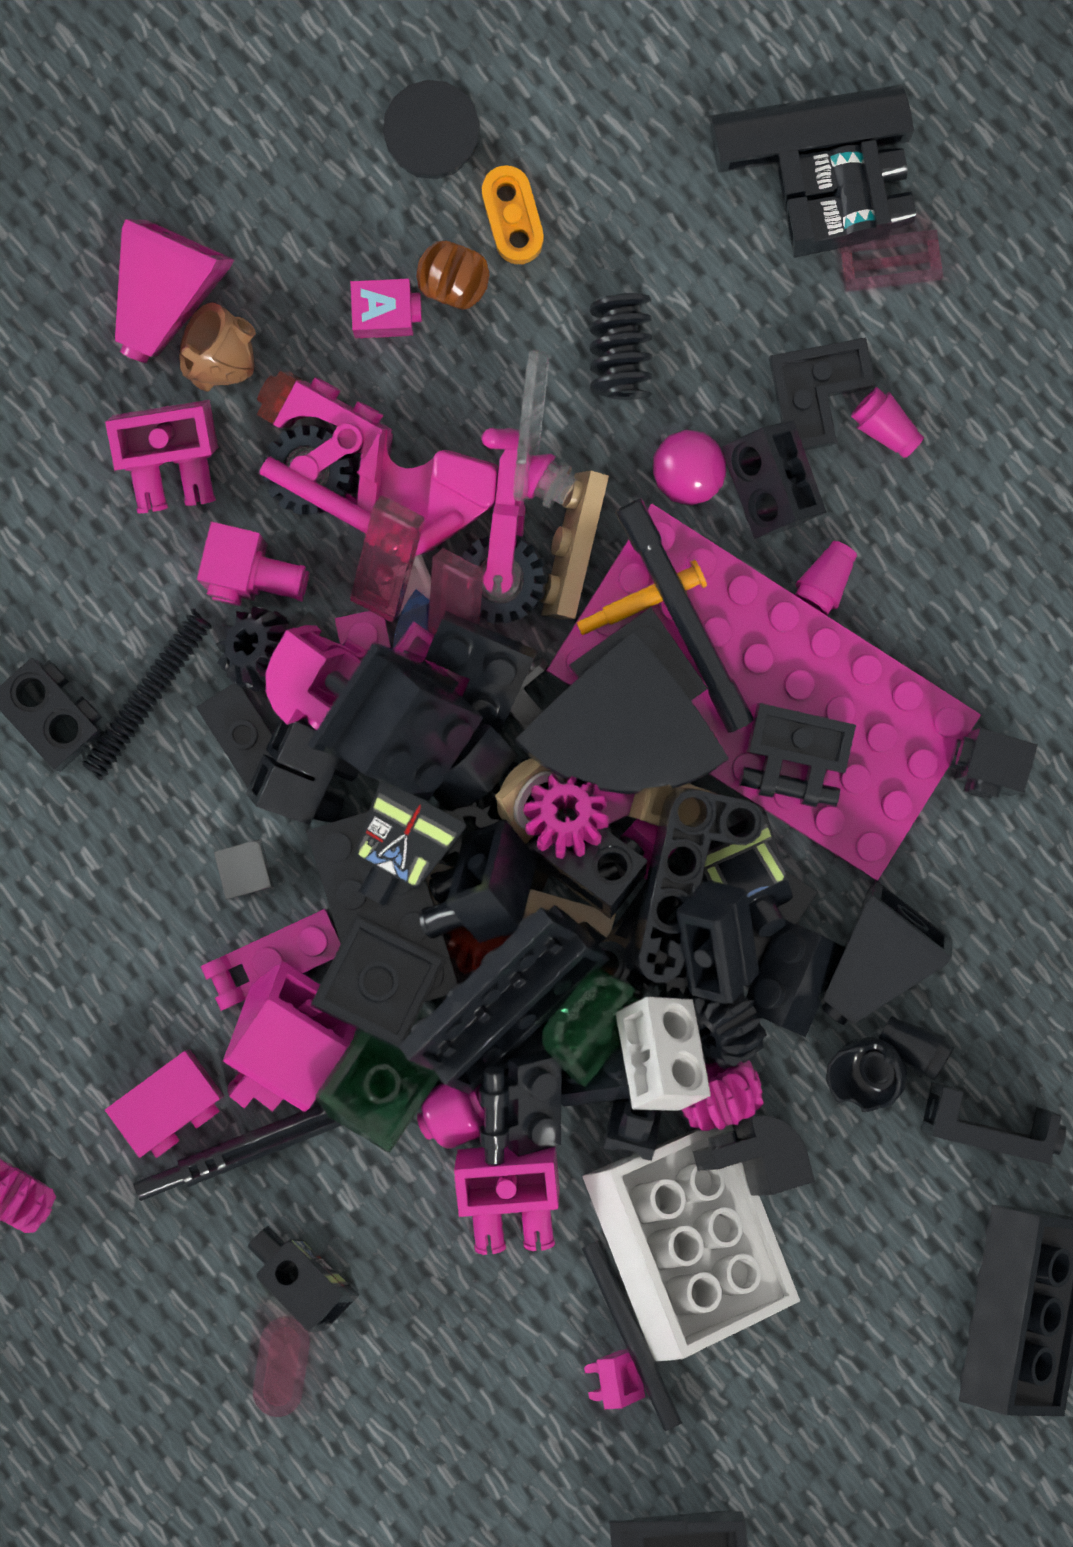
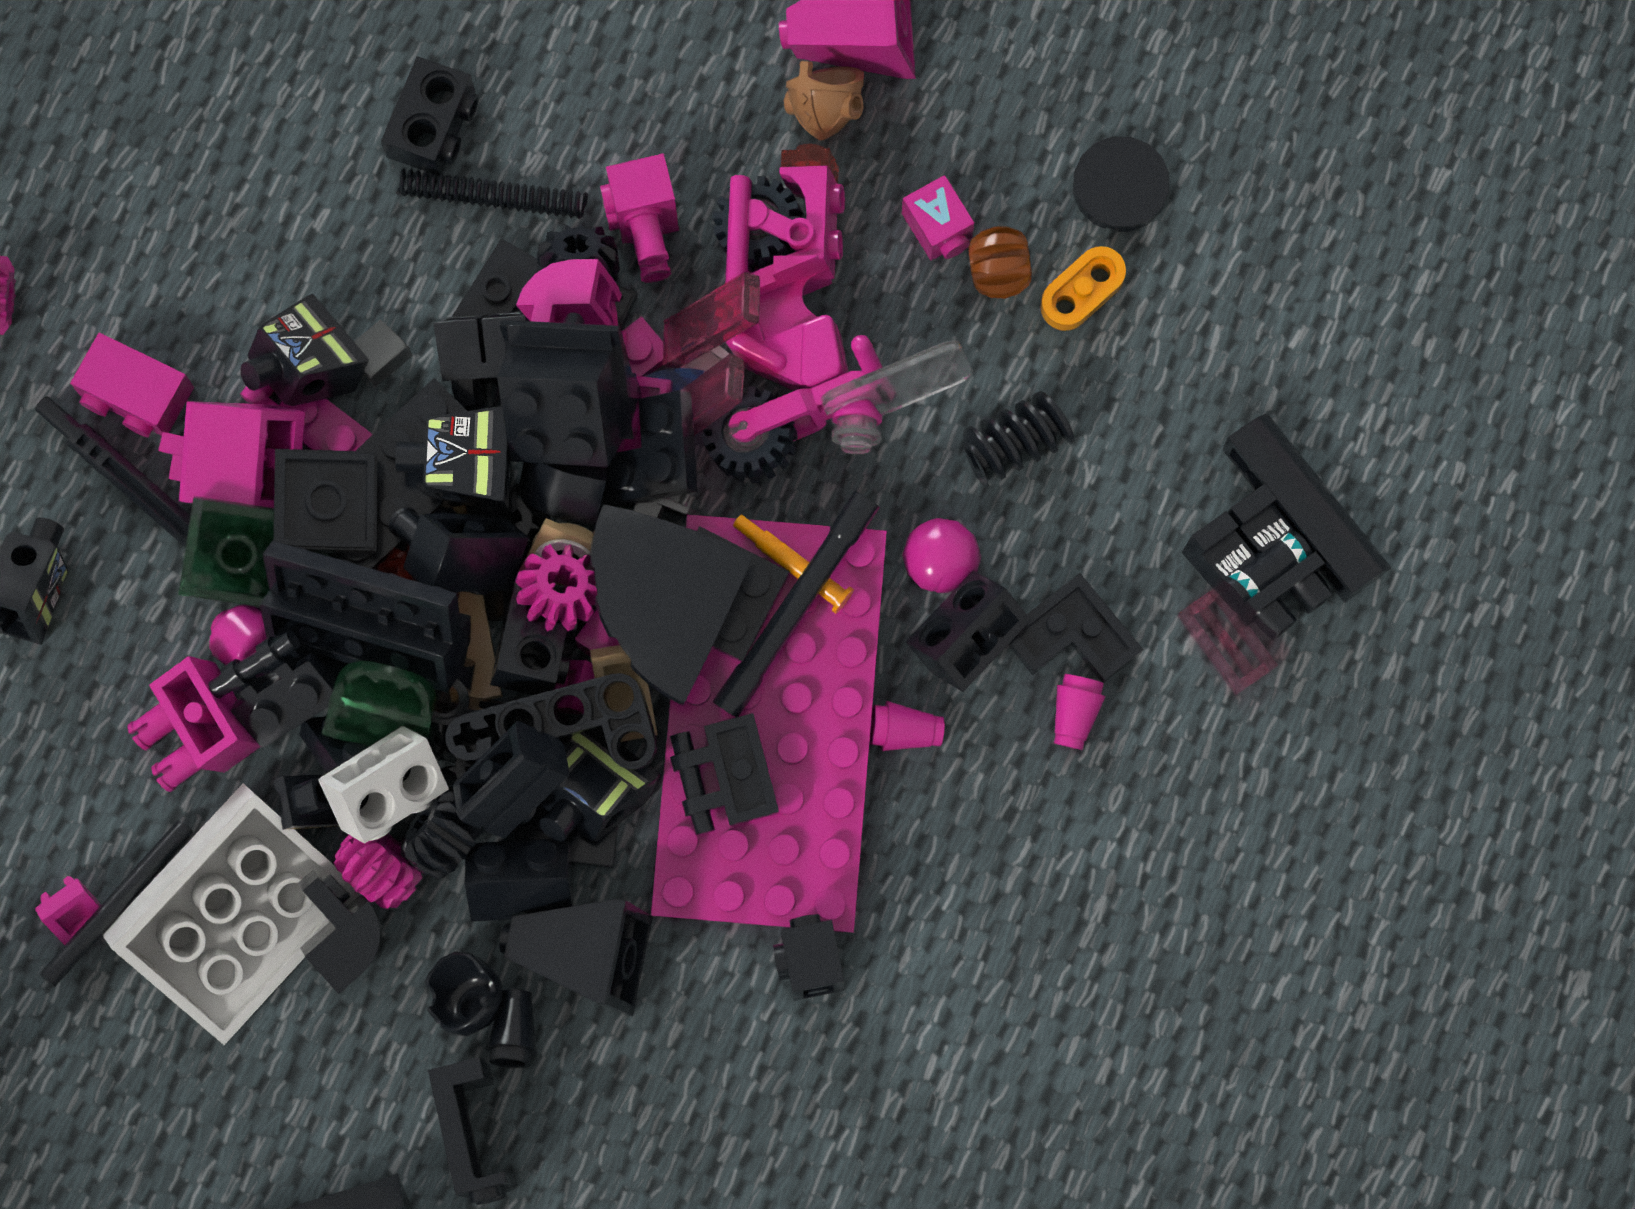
camera: 65 degrees right, 10 degrees down
(160, 435) = (719, 82): dark pink brick -> none
(222, 936) = (304, 355): none -> black torso
(573, 545) = (815, 485): tan plate -> none

